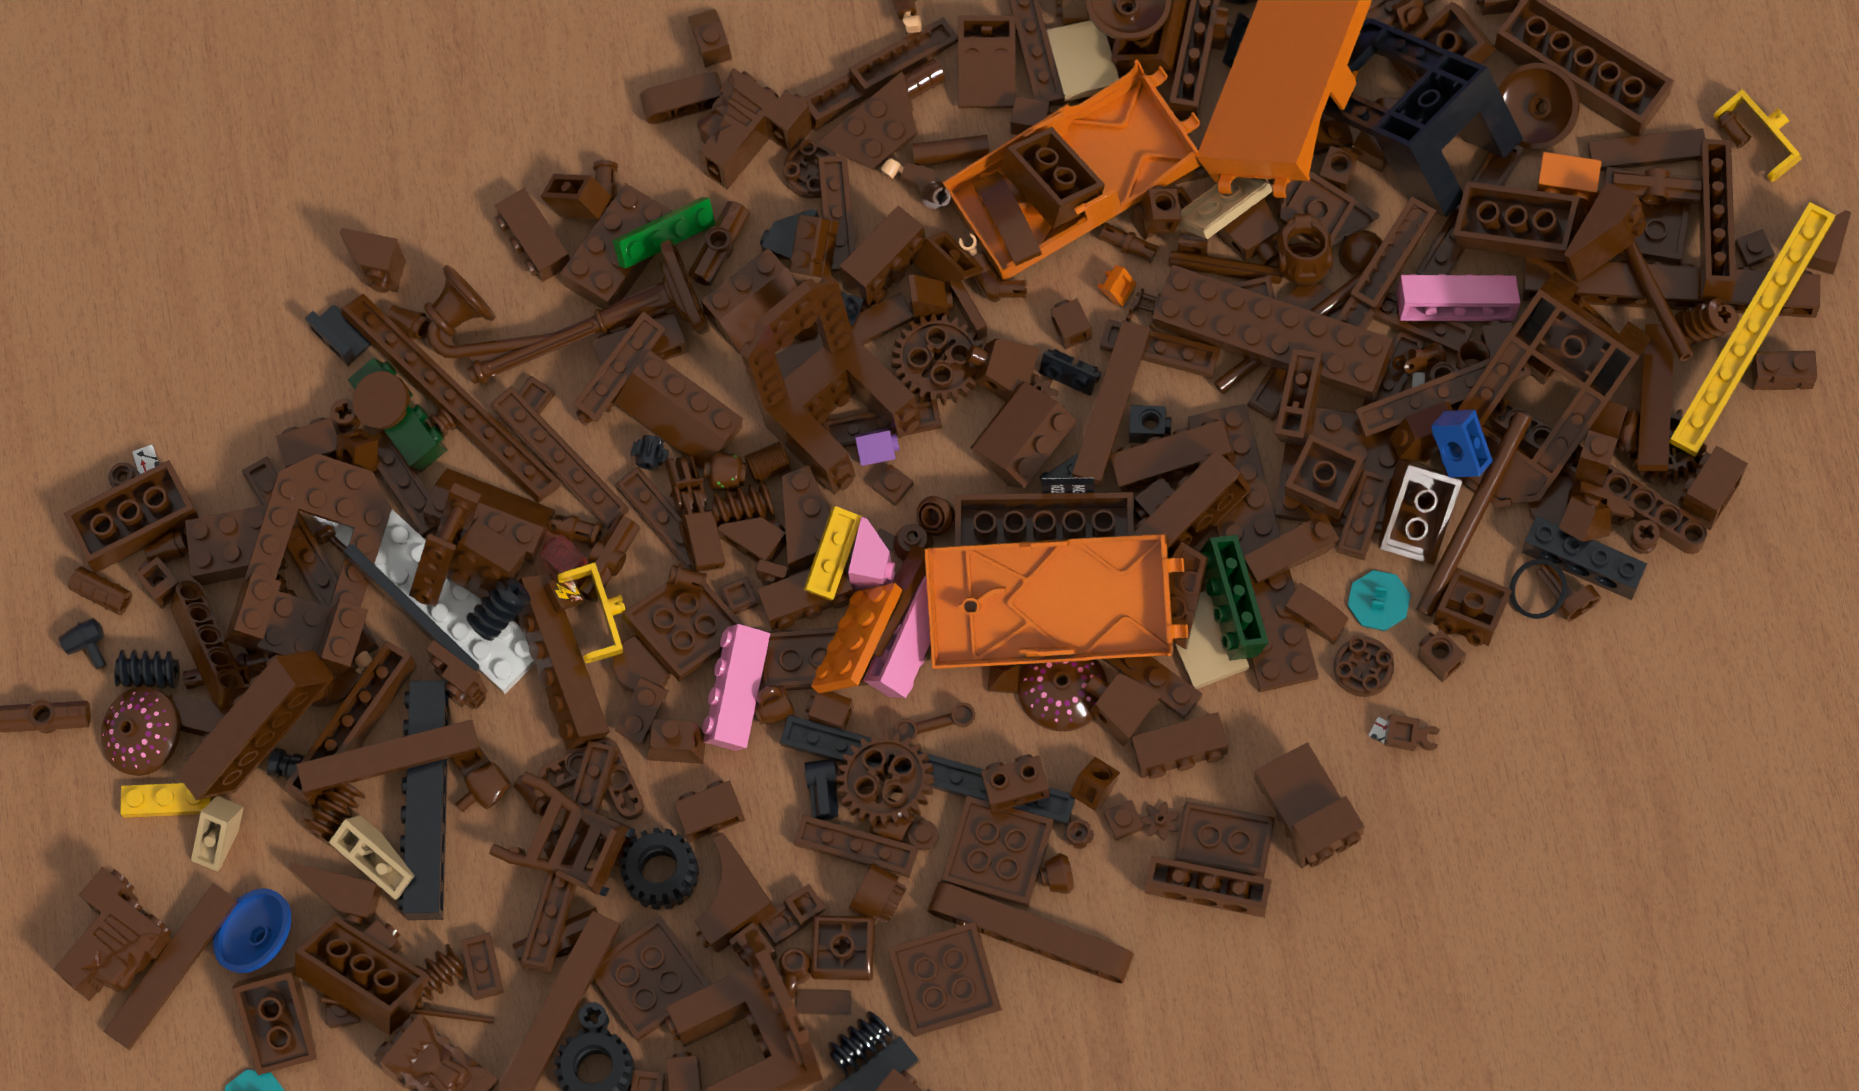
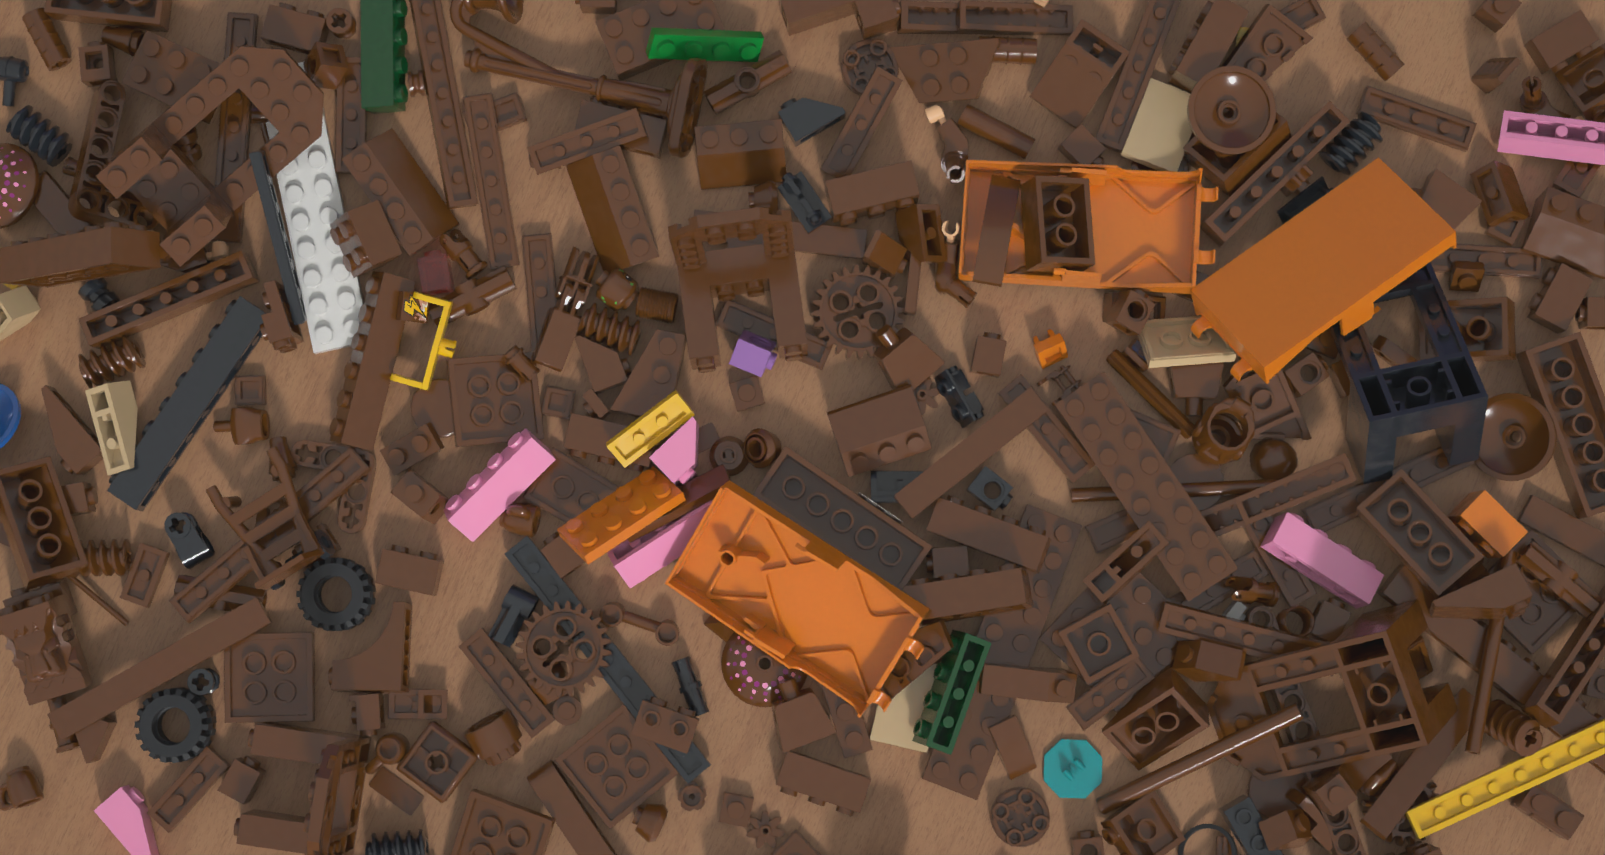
camera: 30 degrees right, 15 degrees up
(381, 400) = (372, 34): reddish brown tile -> none
(387, 757) = (176, 352): reddish brown tile -> none
(440, 549) = (354, 193): reddish brown fence -> none
(498, 609) = (347, 287): black piece -> none
(504, 912) = (191, 543): none -> black piece
(649, 452) = (566, 229): black gear -> none
(814, 246) = (819, 144): reddish brown brick -> none
(1008, 743) = (690, 686): none -> black pin
(1094, 783) = (722, 769): reddish brown brick -> none
(1128, 242) = (1086, 316): reddish brown pin -> none
(1461, 443) = (1228, 701): blue brick -> none

